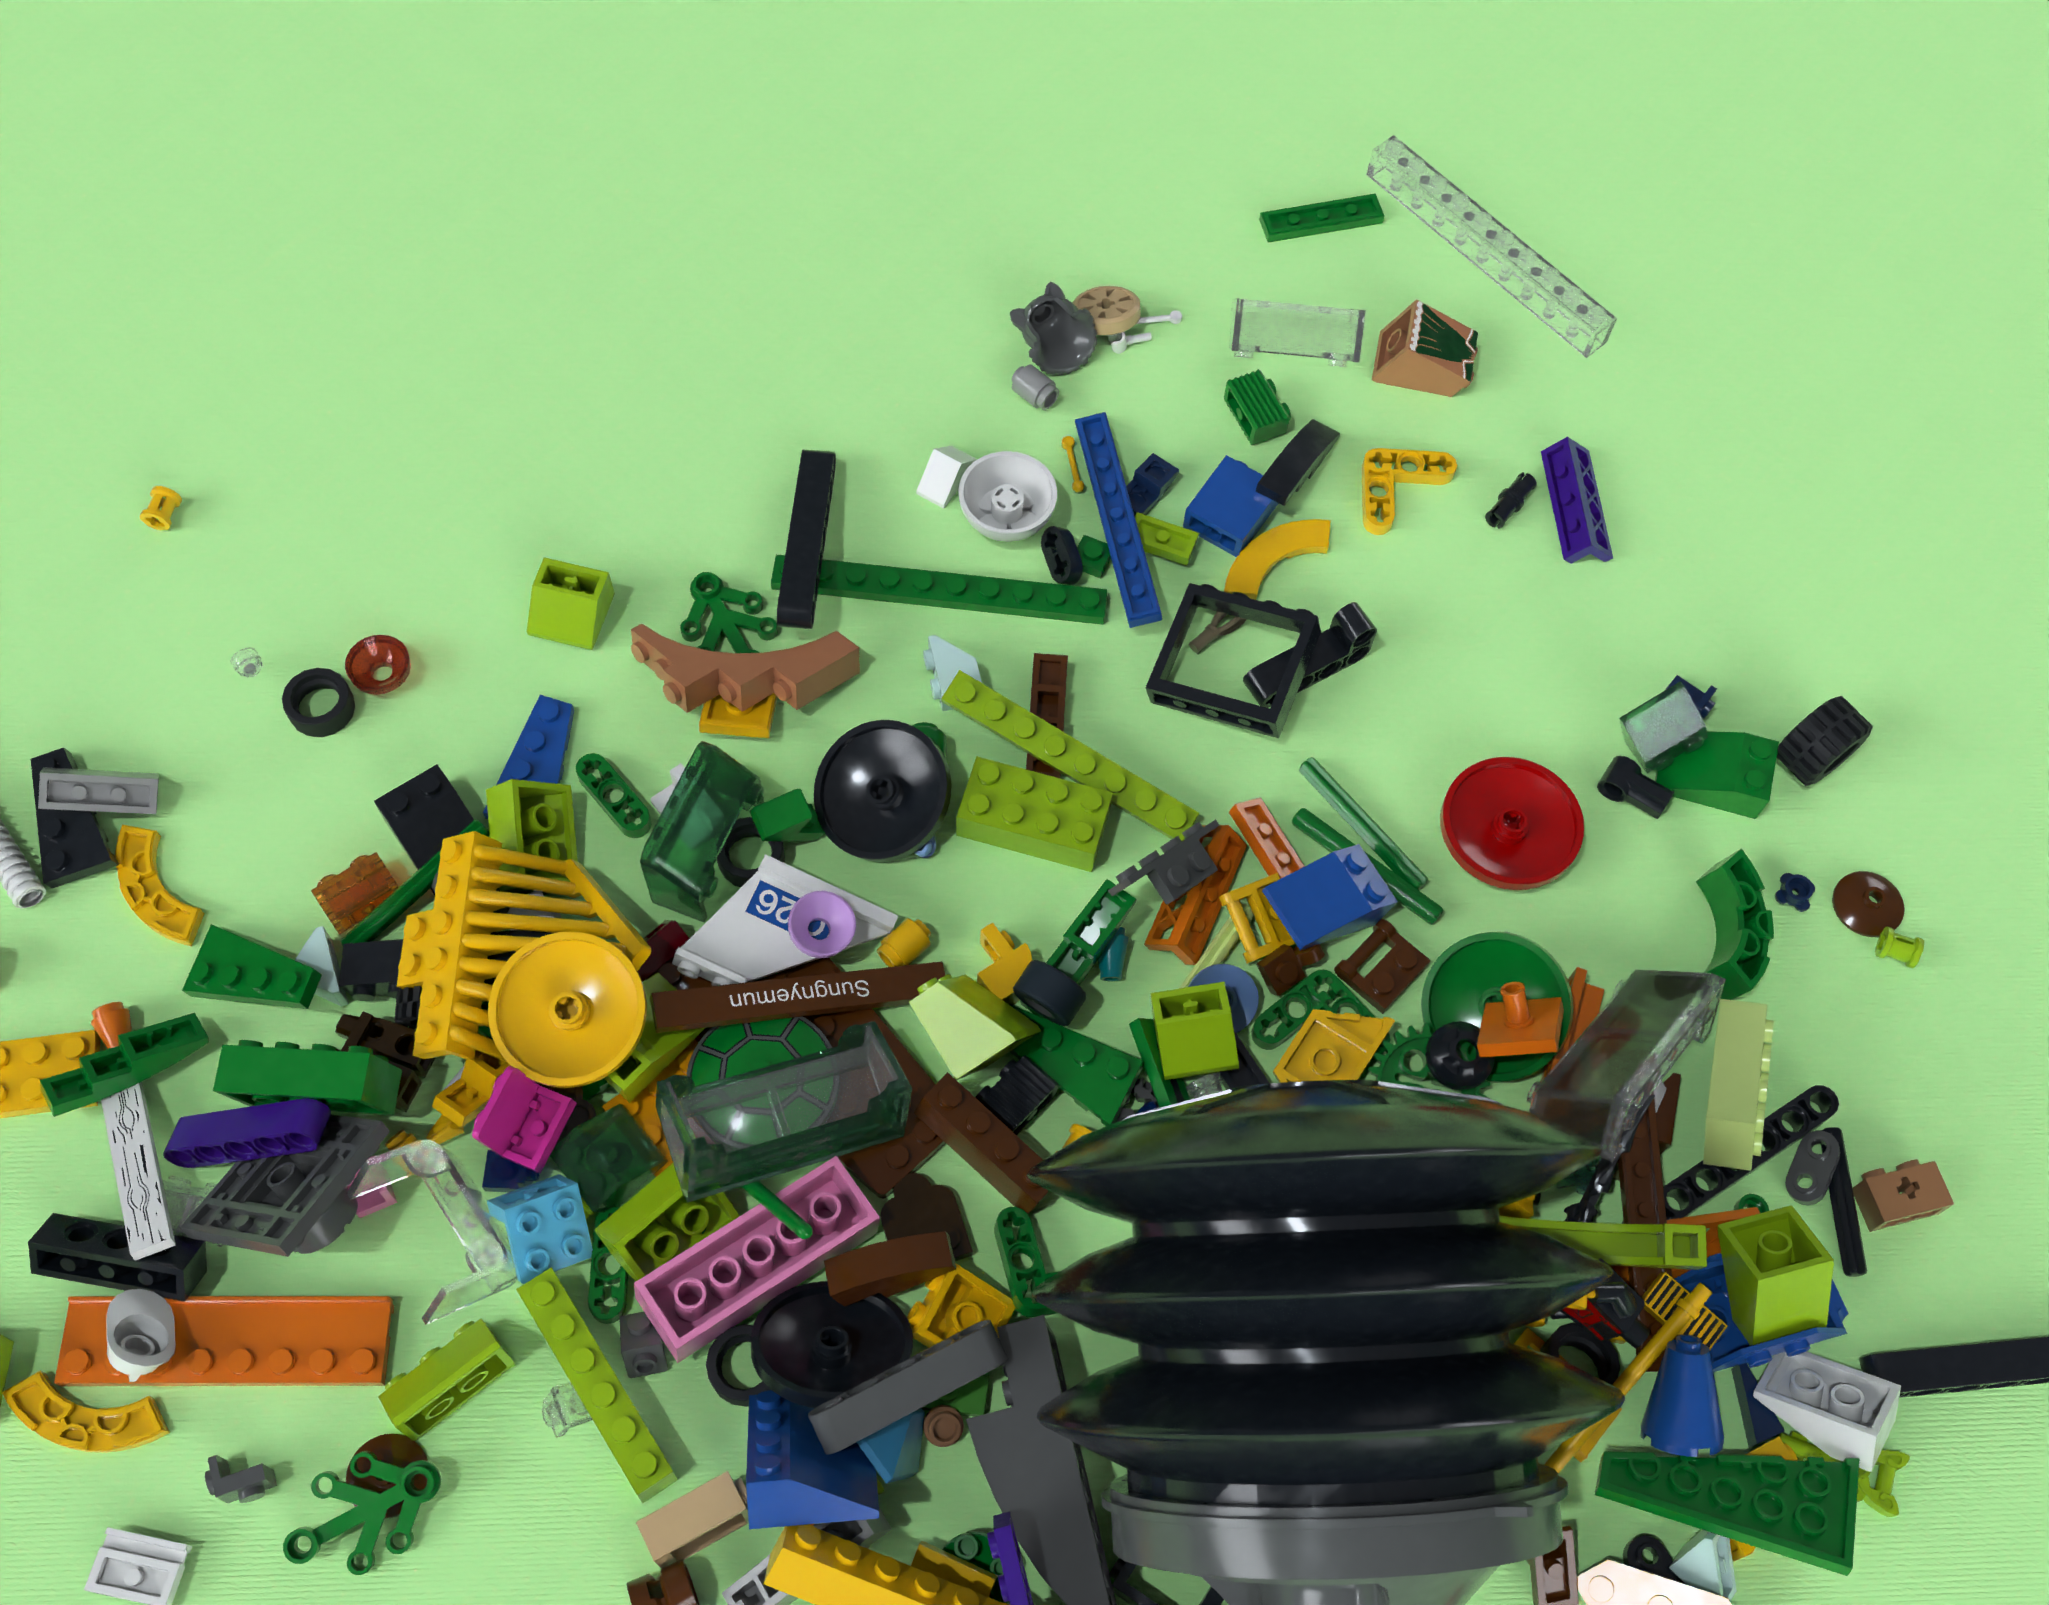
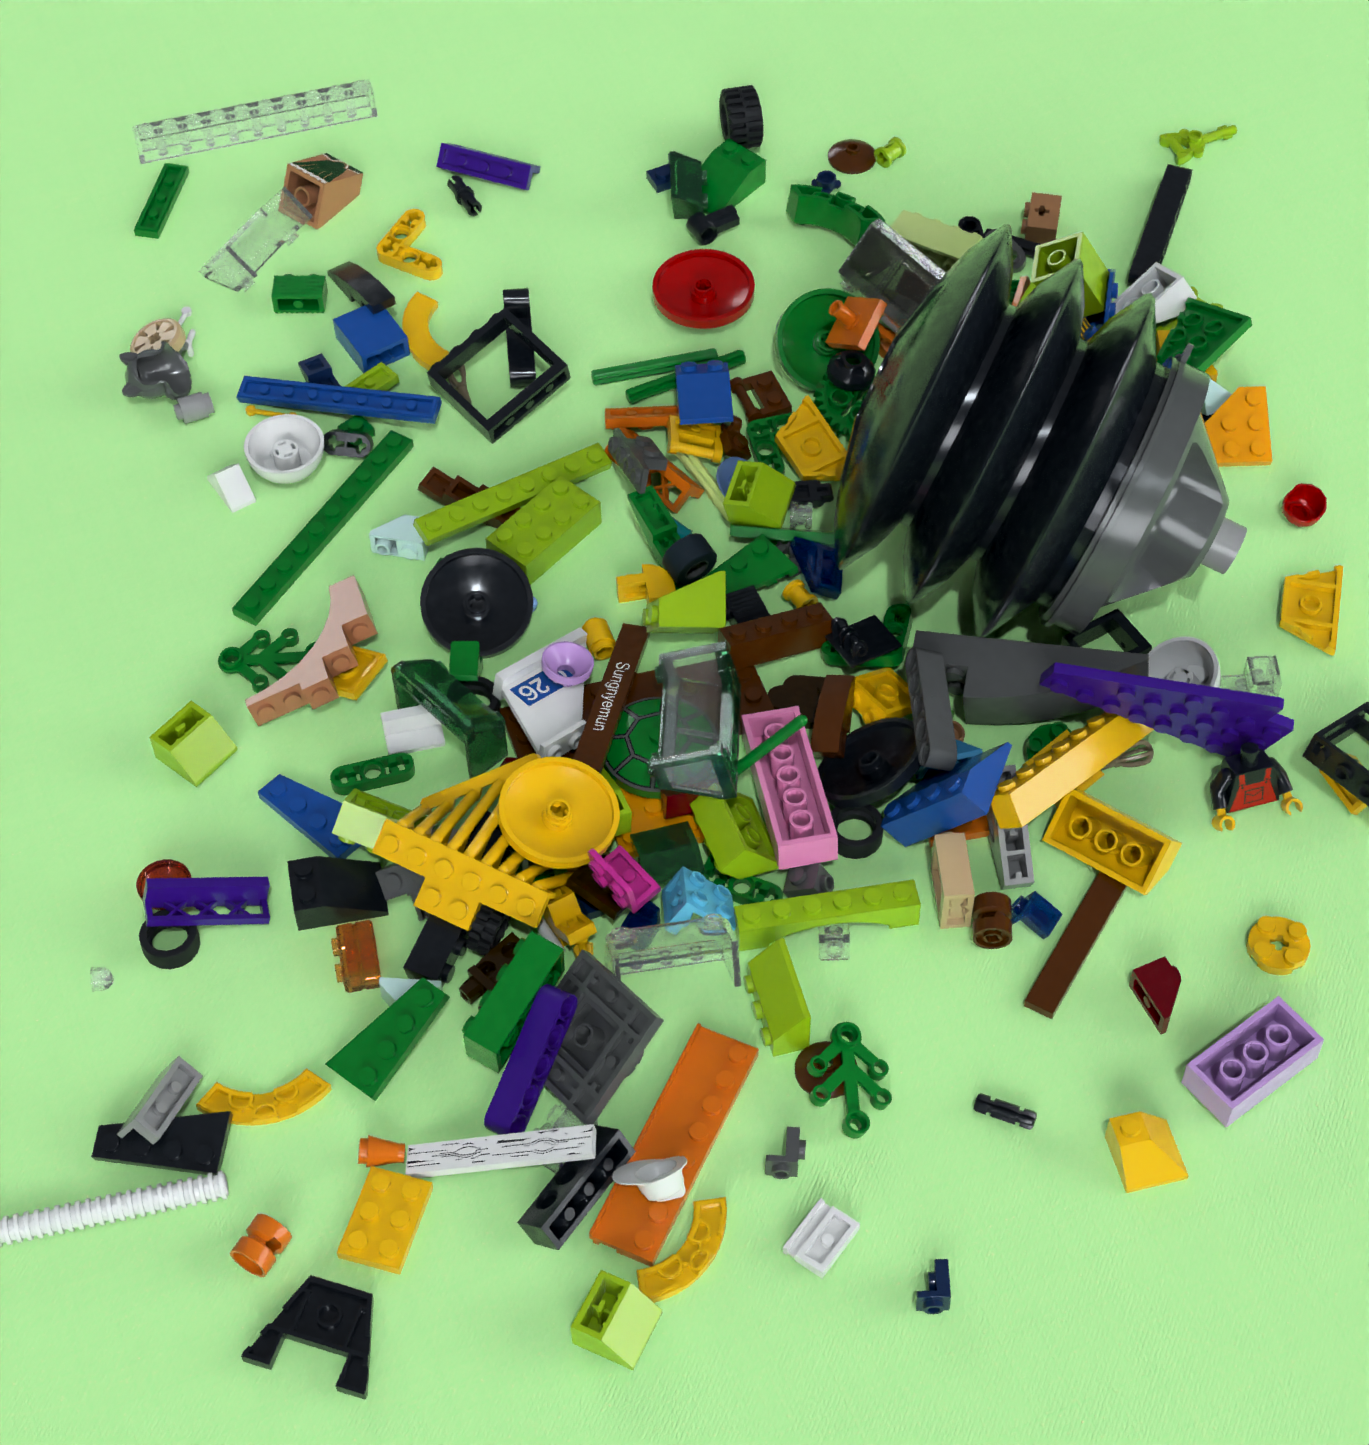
camera: 60 degrees left, 10 degrees down
(131, 1062) = (419, 1143): green slope -> none
(370, 705) = (205, 895): none -> dark purple fence
(402, 897) = (378, 912): green axle -> none
(806, 540) = (238, 577): black beam -> none
(1026, 1251) = (861, 640): none -> black hinge

